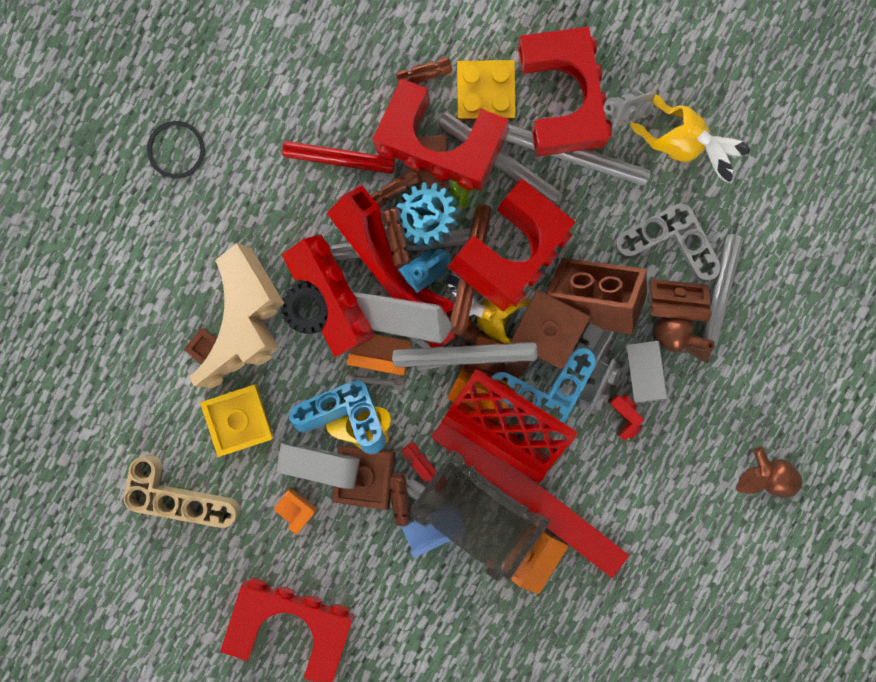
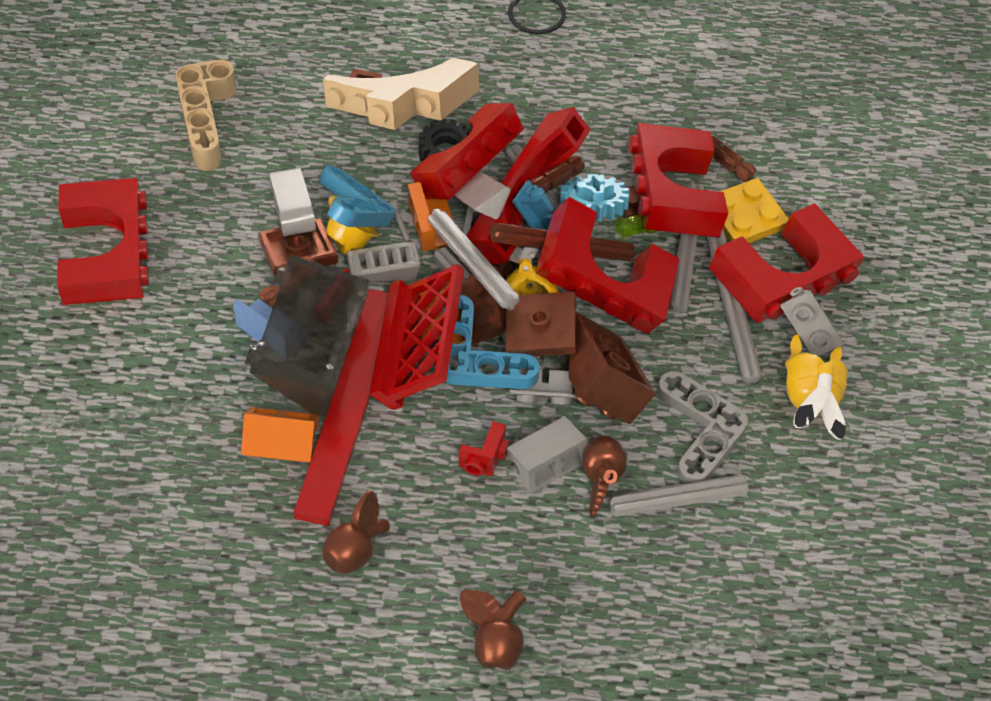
camera: 65 degrees right, 35 degrees down
(237, 420) = (304, 132): yellow plate -> none
(295, 510) = (233, 208): orange panel -> none
(337, 157) = (606, 124): red axle -> none
(396, 187) = (607, 170): copper axle -> none
(417, 392) = (402, 255): none -> light grey slope
(596, 395) = (518, 418): light grey hinge -> none
(661, 551) = (350, 543): none -> copper piece
(679, 300) = (642, 450): copper plate -> none

